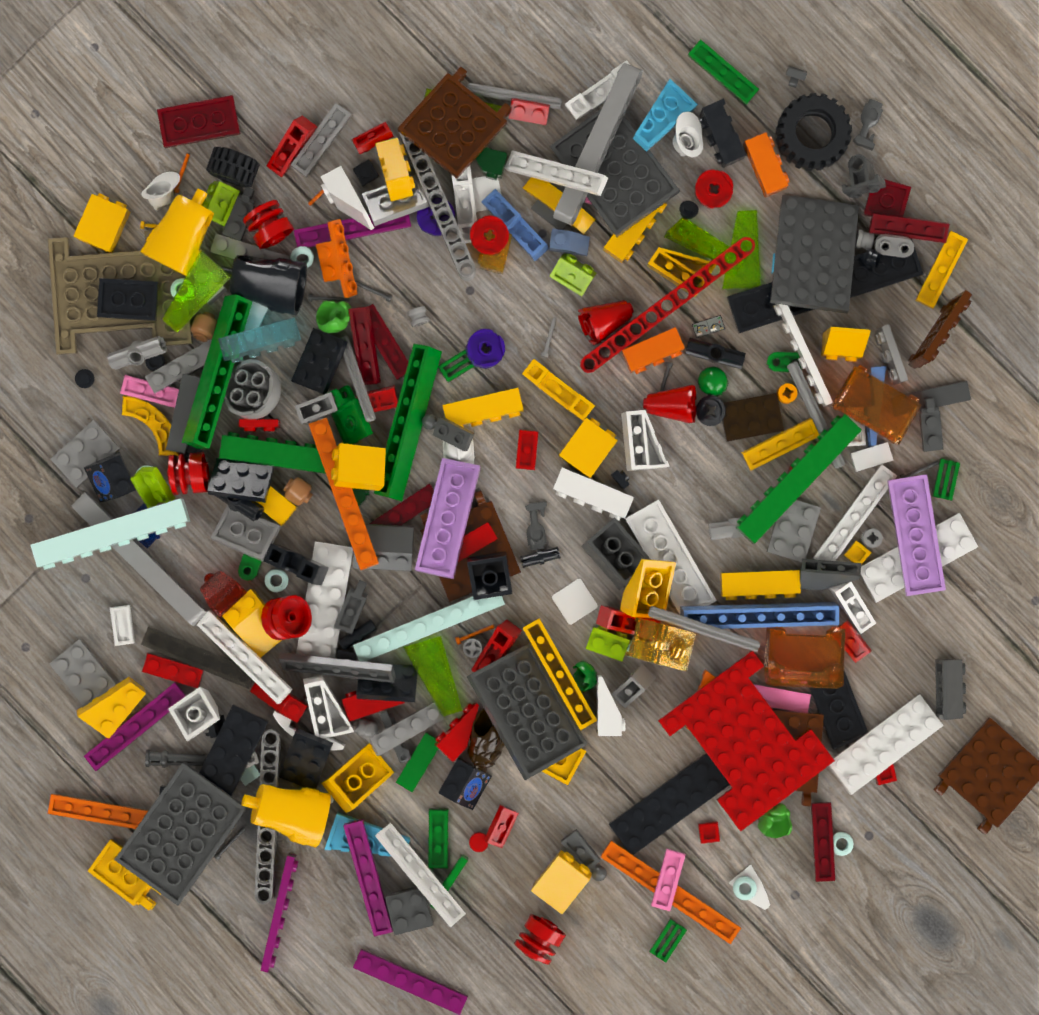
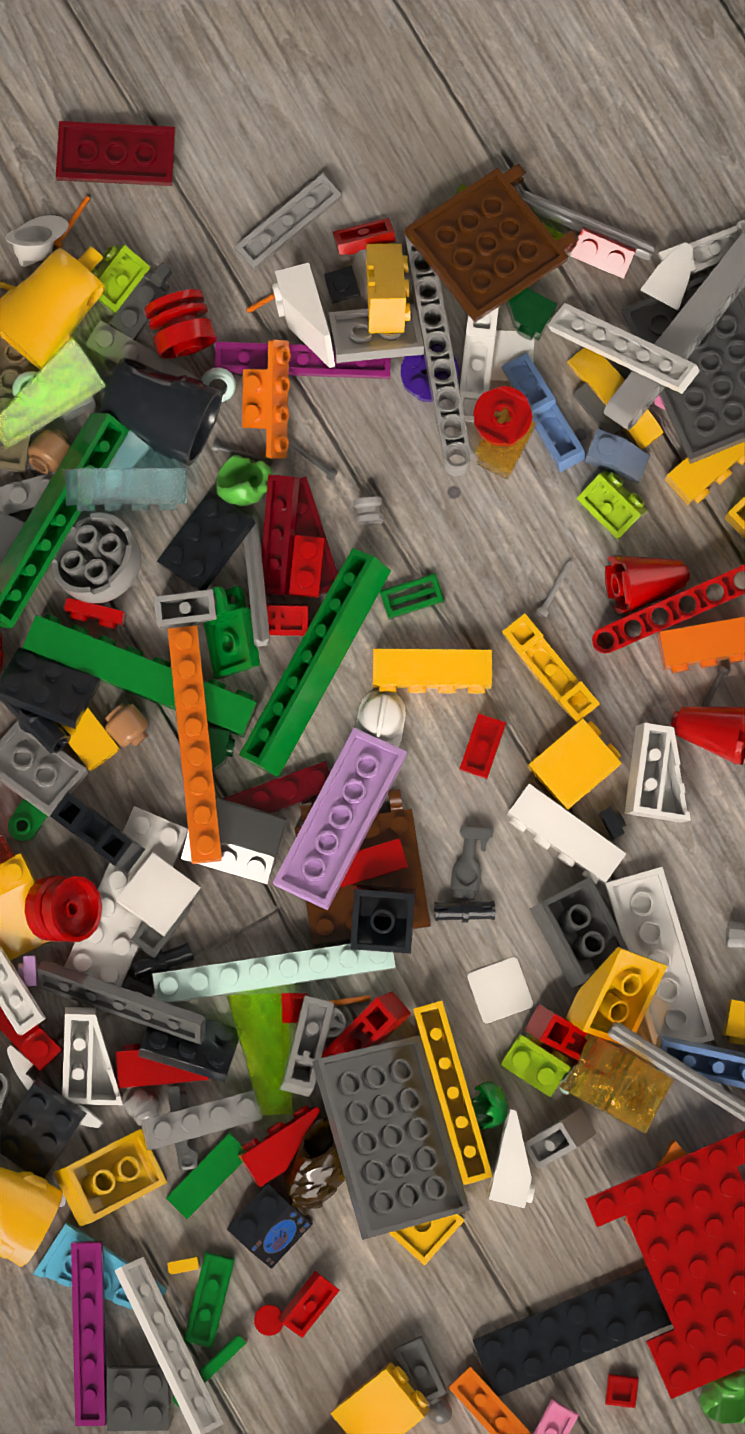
camera: 10 degrees right, 5 degrees down
(232, 167) = (149, 228): black tyre -> none
(273, 661) = (28, 971): none -> lavender plate
(282, 586) = (62, 863): light aqua piece -> none
(291, 144) = (242, 218): red slope -> none
(344, 594) = (158, 894): none -> white tile
(358, 467) = (227, 709): yellow brick -> none
(387, 362) = (306, 566): none -> red plate
(417, 821) = (184, 1265): none -> yellow tile
(447, 644) = (291, 1006): none -> red tile
(448, 431) = (373, 690): dark grey plate -> none
(461, 666) = (306, 1046): none -> light grey slope
(477, 356) = (468, 571): dark purple plate -> none
(576, 118) = (671, 277): none -> white sticker

